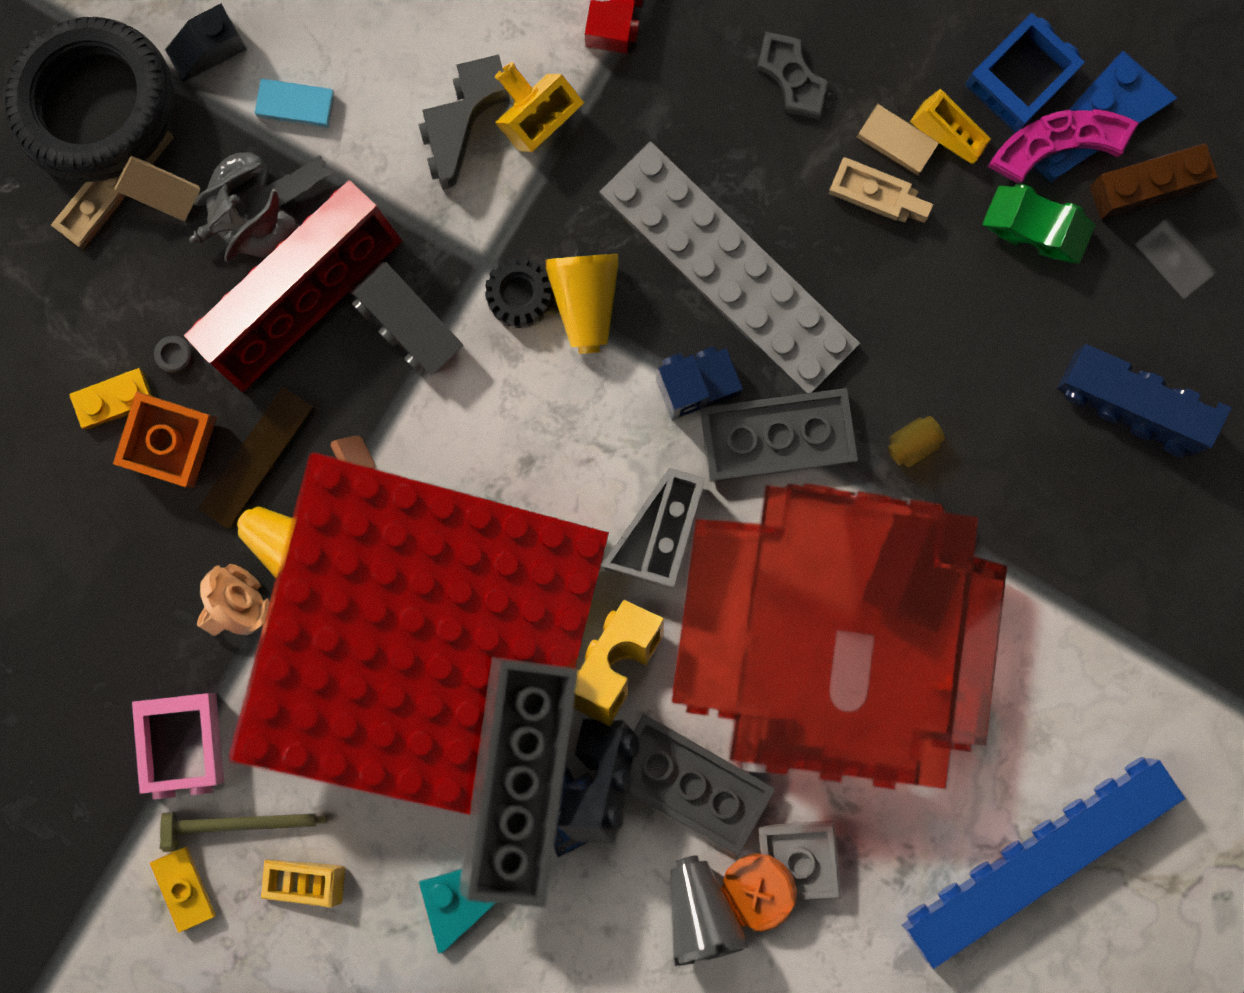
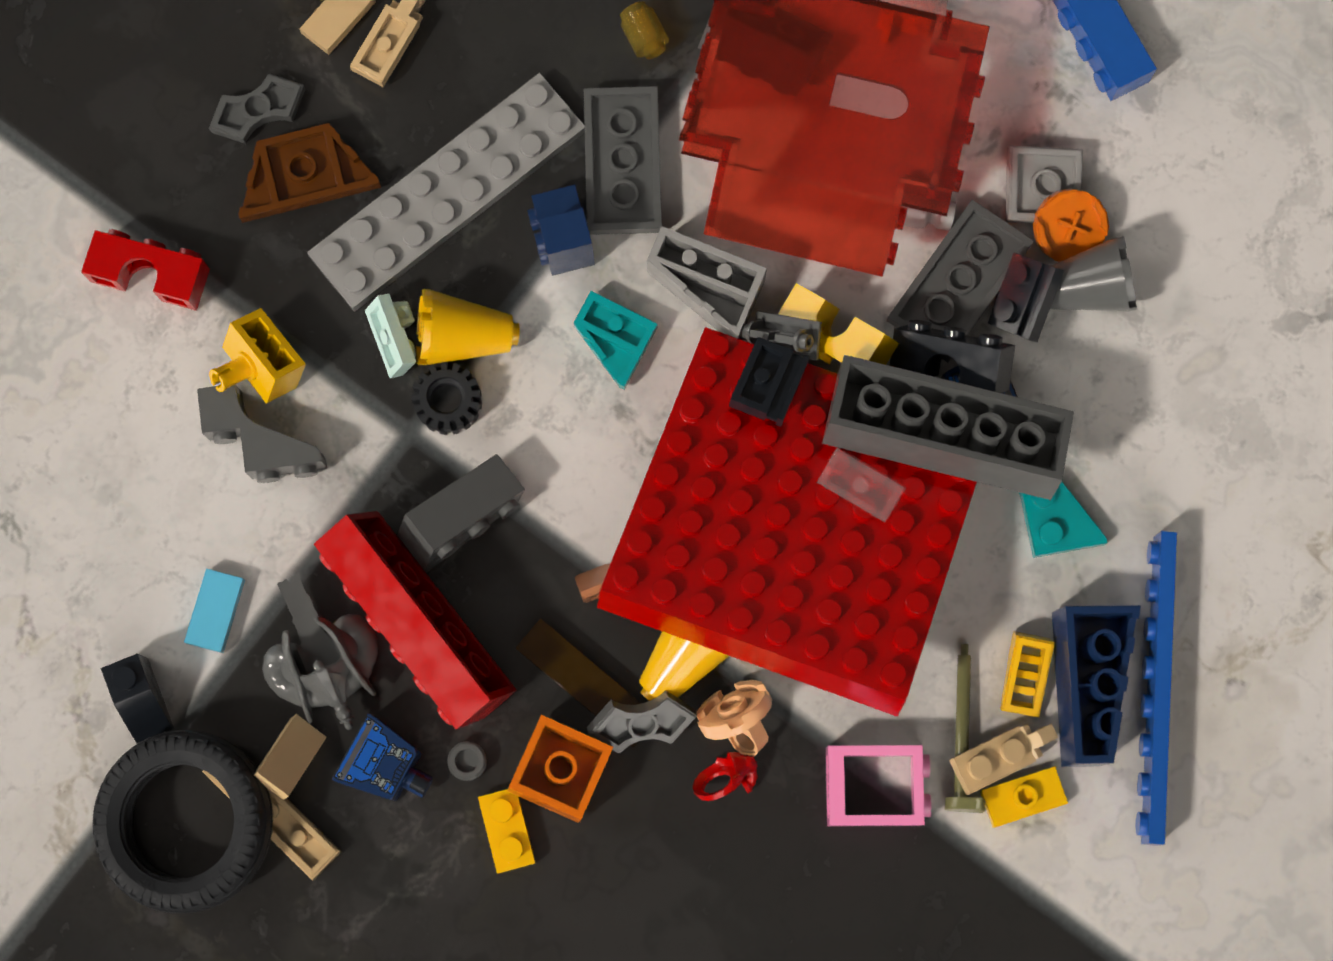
camera: 80 degrees left, 5 degrees down
(161, 274) = (382, 763): none -> torso
(185, 611) = (734, 765): none -> red piece
(212, 496) = (627, 724): none -> dark grey tile
(217, 863) = (1000, 756): none -> tan hinge
(303, 946) = (1091, 679): none -> dark blue wedge
(453, 701) = (861, 484): none -> clear slope
(550, 599) = (769, 381): none -> black plate
(590, 226) = (388, 326): none -> light aqua hinge
(598, 446) = (614, 335): none -> teal wing
(607, 610) = (787, 331): none -> dark grey hinge
(676, 851) = (1025, 297): none -> black plate
(731, 127) = (303, 172): none -> reddish brown wing

